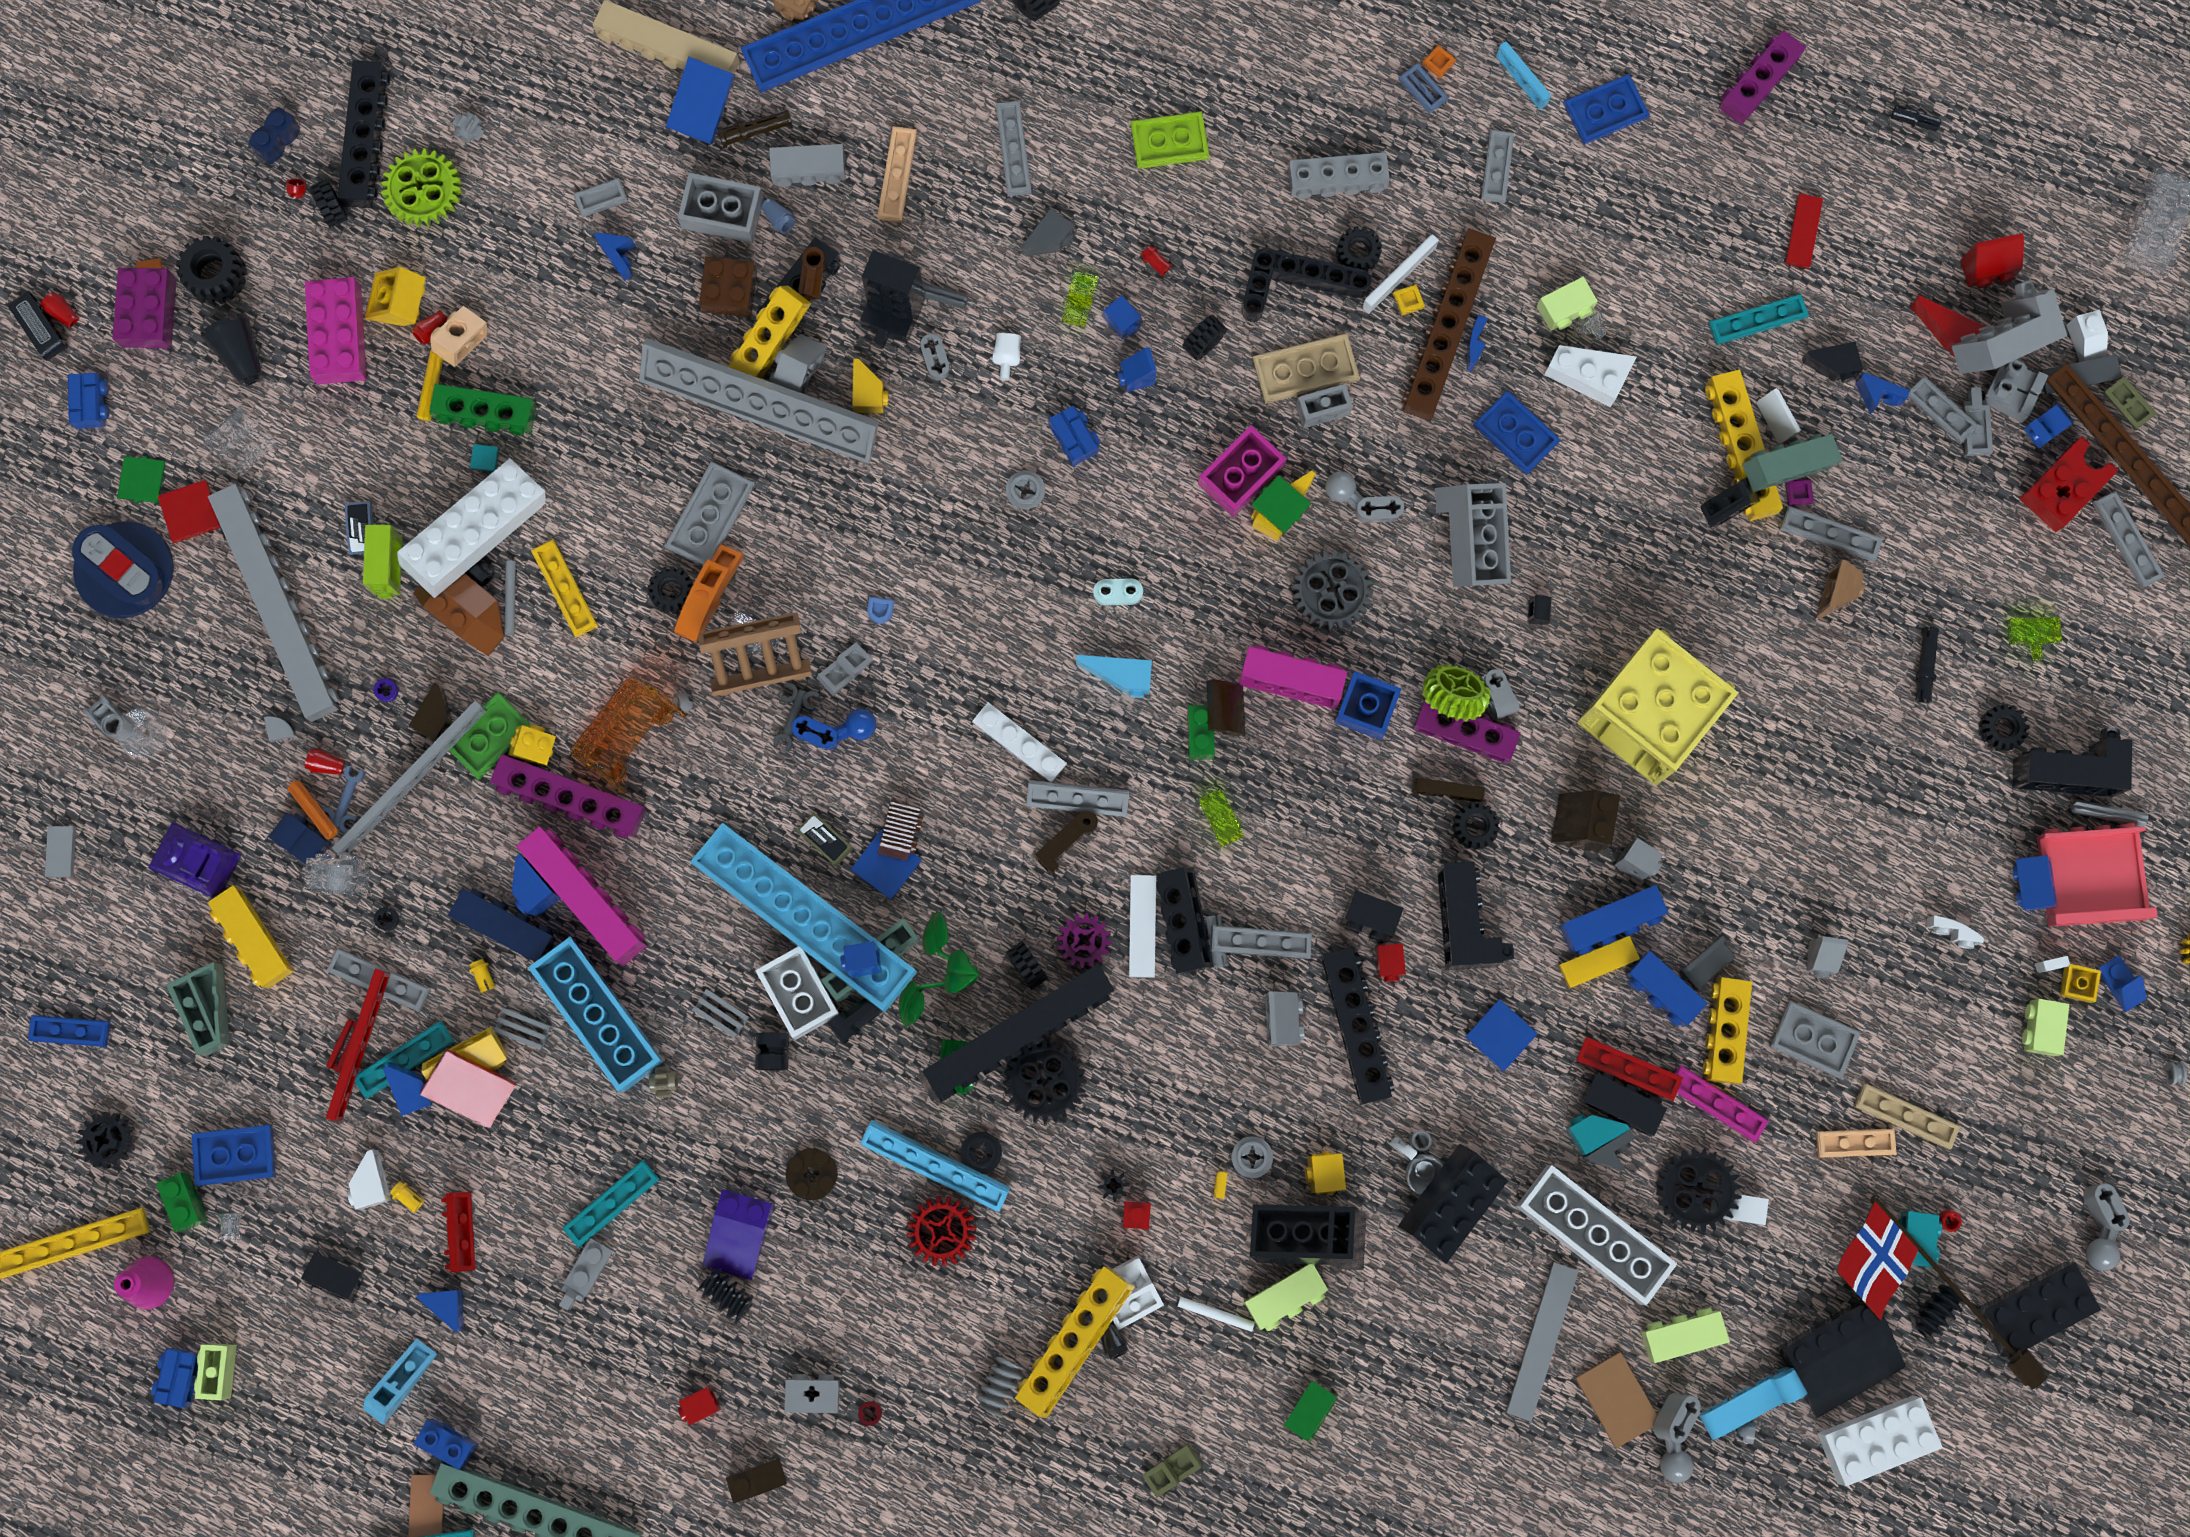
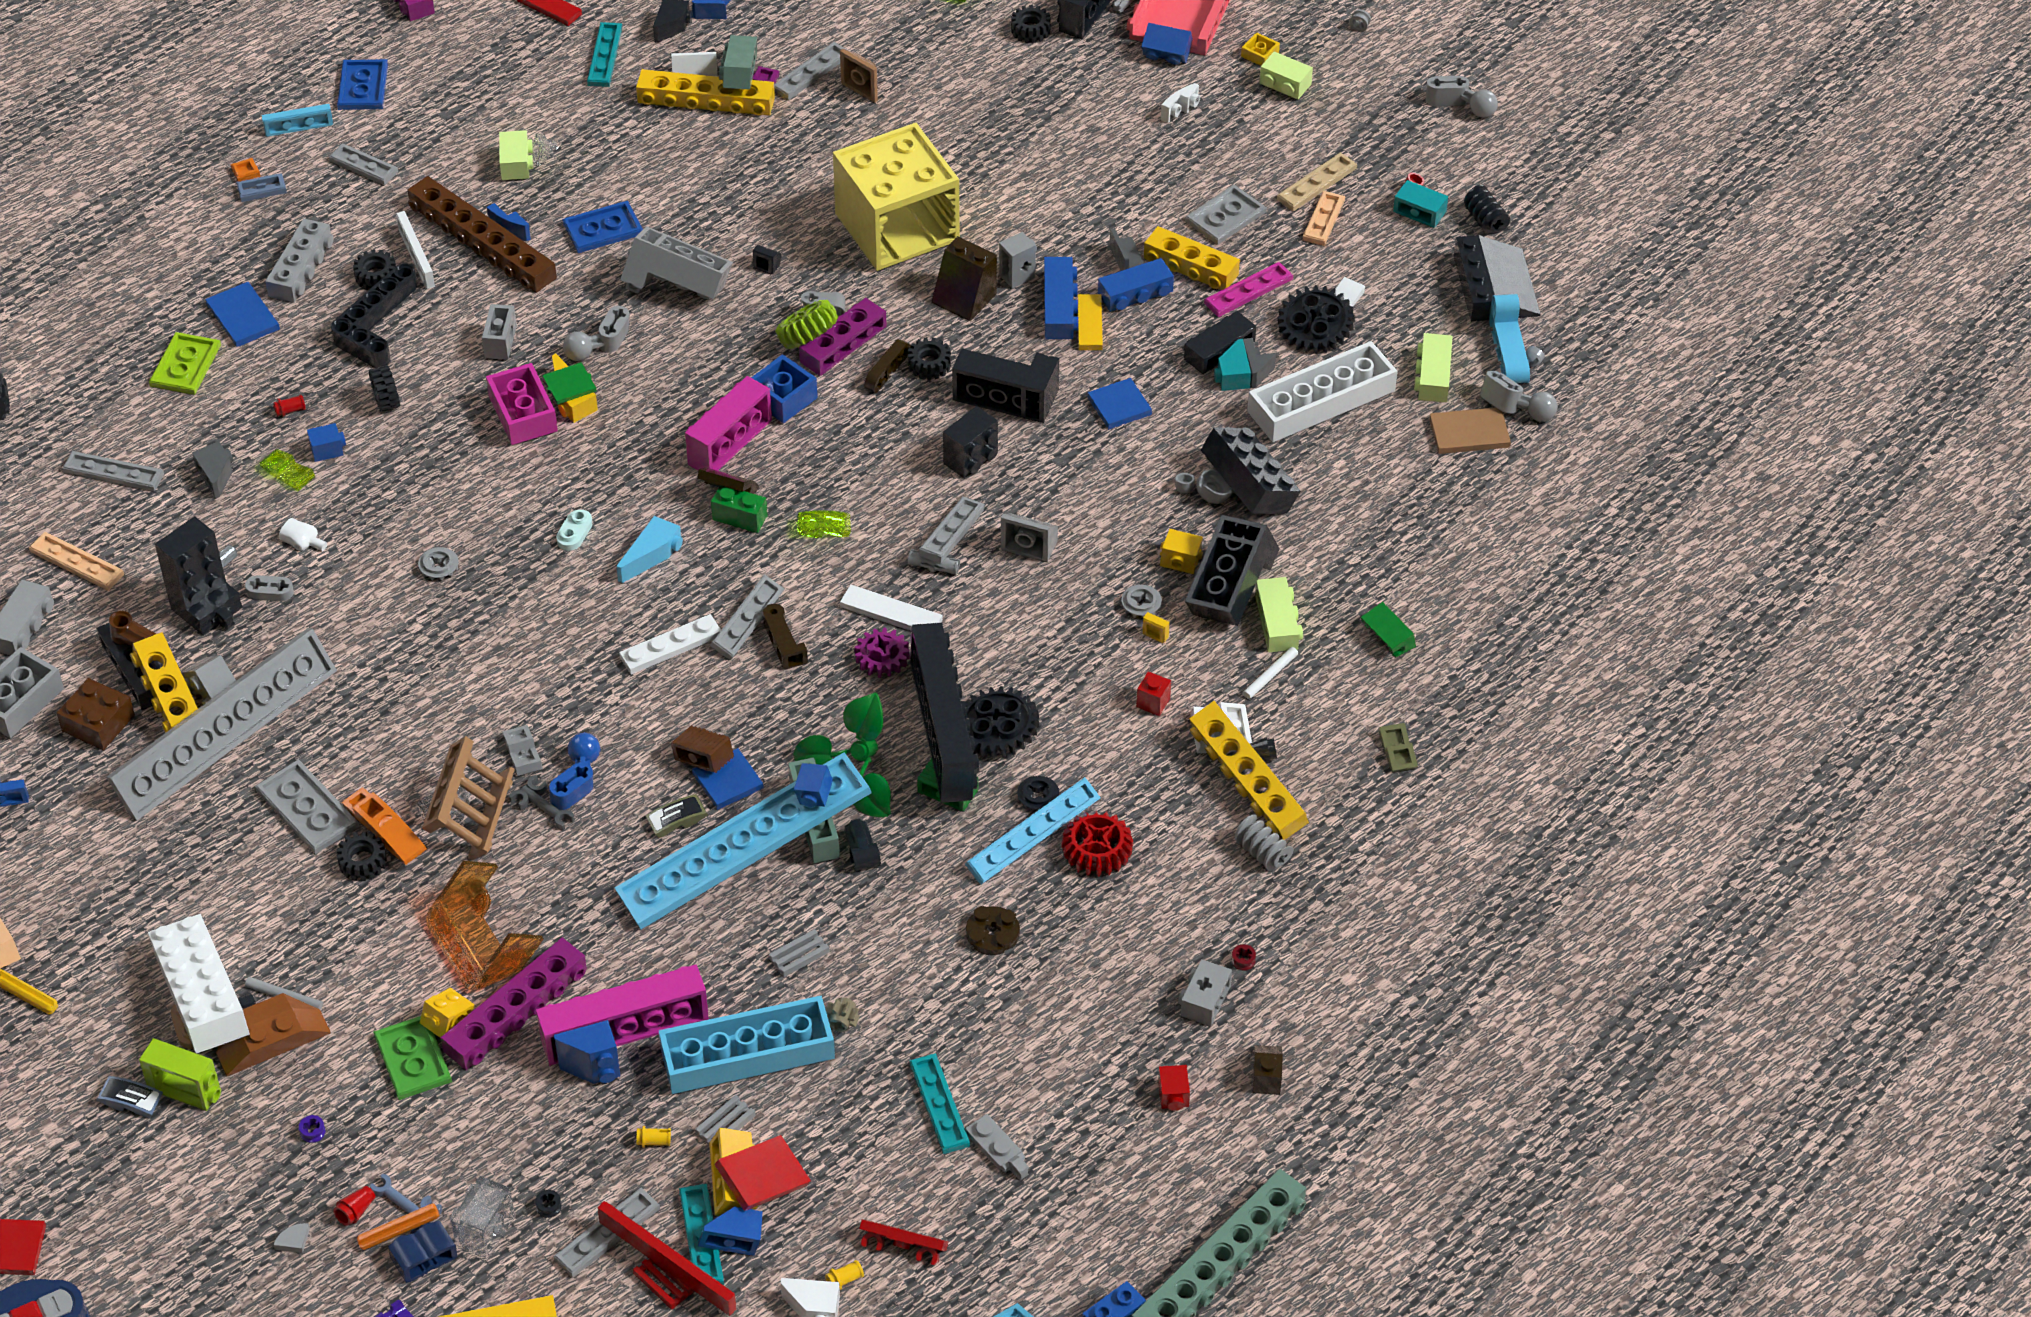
camera: 65 degrees left, 30 degrees down
(273, 602) = (159, 1194): light grey brick -> none
(410, 778) = (416, 1123): light grey tile -> none
(433, 715) = (366, 1090): dark brown slope -> none
(447, 397) = (79, 949): green brick -> none
(447, 1306) = (974, 1272): blue slope -> none
(484, 458) = (129, 969): teal tile -> none
(502, 926) = (613, 1100): dark blue brick -> none
(564, 588) = (303, 945): yellow tile -> none
(726, 1295) = (1076, 1027): black piece -> none
(737, 1234) = (1019, 1002): dark purple slope -> none
(772, 1051) = (867, 920): black wheel -> none
(779, 217) = (57, 655): sand blue cone -> none
(797, 992) = (813, 875): white brick -> none
(867, 390) = (262, 640): yellow slope -> none
(880, 609) = (481, 706): medium blue tile -> none
(1026, 965) = (889, 689): black tyre -> none
(1074, 435) = (411, 510): blue brick -> none
(1118, 1180) = (1118, 703): black gear -> none
(1137, 371) = (383, 440): blue slope -> none
(1194, 930) = (867, 560): black brick -> none
(1252, 158) = (242, 314): none -> blue tile
(1306, 368) = (455, 340): tan tile -> none
(1311, 598) = (665, 383): dark grey gear -> none
(1350, 960) = (1061, 490): black brick -> none
(1390, 962) = (1016, 450): red brick -> none
(1405, 1150) = (1188, 495): white tile -> none
(1408, 300) = (441, 255): yellow tile -> none
(1542, 1341) = (1397, 462): light grey tile -> none
(1590, 372) = (583, 160): white wedge -> none
(1629, 1069) = (1204, 316): red plate -> none
(1729, 503) = (748, 111): black hinge -> none
(1825, 956) = (1159, 177): light grey slope -> none
(1879, 1440) = (1575, 278): white brick -> none
(1881, 1260) = (1431, 225): flag -> none
(1927, 665) = (962, 52): black pin -> none
(2040, 1308) = (1510, 153): black brick -> none
(2052, 964) = (1237, 57): white tile -> none
(2123, 985) = (1277, 27): blue slope -> none

